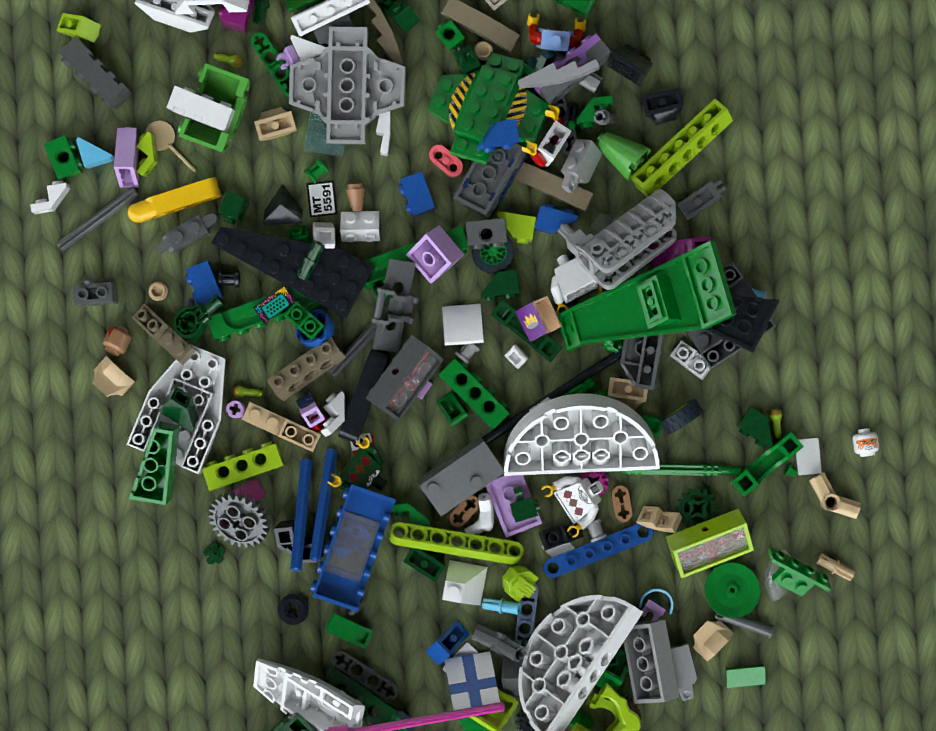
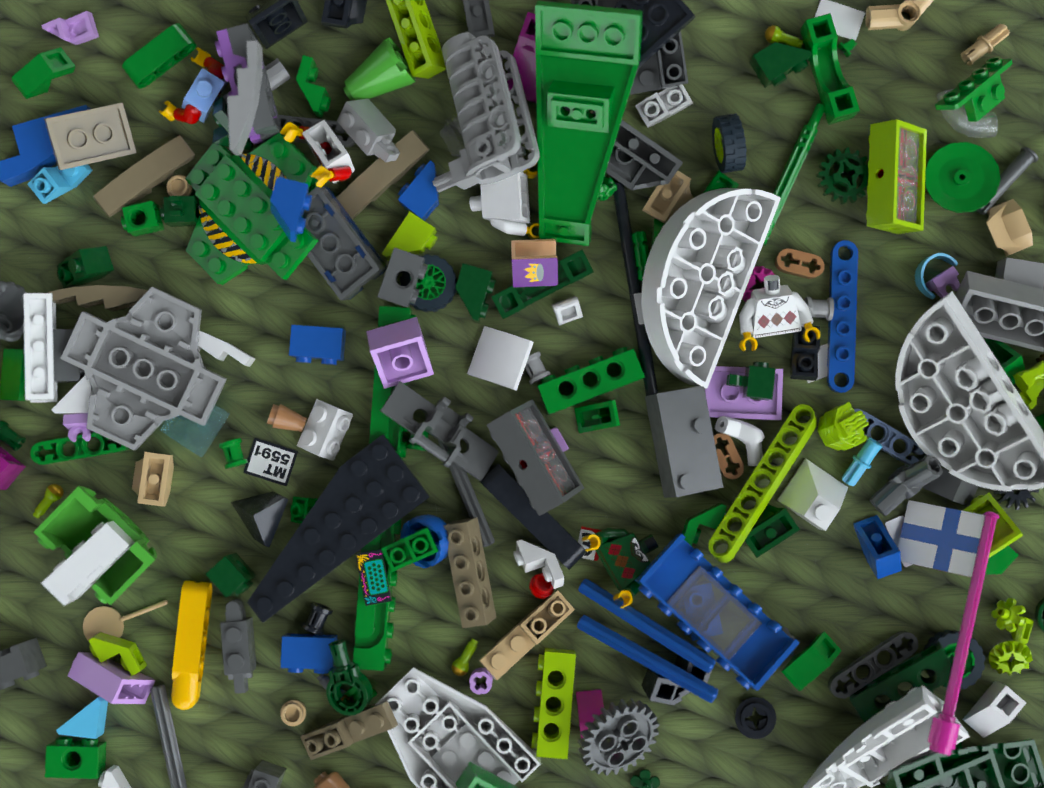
camera: 70 degrees left, 0 degrees up
(180, 408) = (450, 752): dark green slope -> none
(308, 409) = (520, 592): lavender leg -> none
(310, 260) = (338, 508): dark green pin -> none
(324, 233) = (315, 478): white slope -> none
(446, 161) = (293, 291): coral plate -> none
(572, 116) = (307, 113): black piece -> none
(605, 117) = (320, 78): dark grey pin -> none
(657, 519) = (840, 227): tan slope -> none

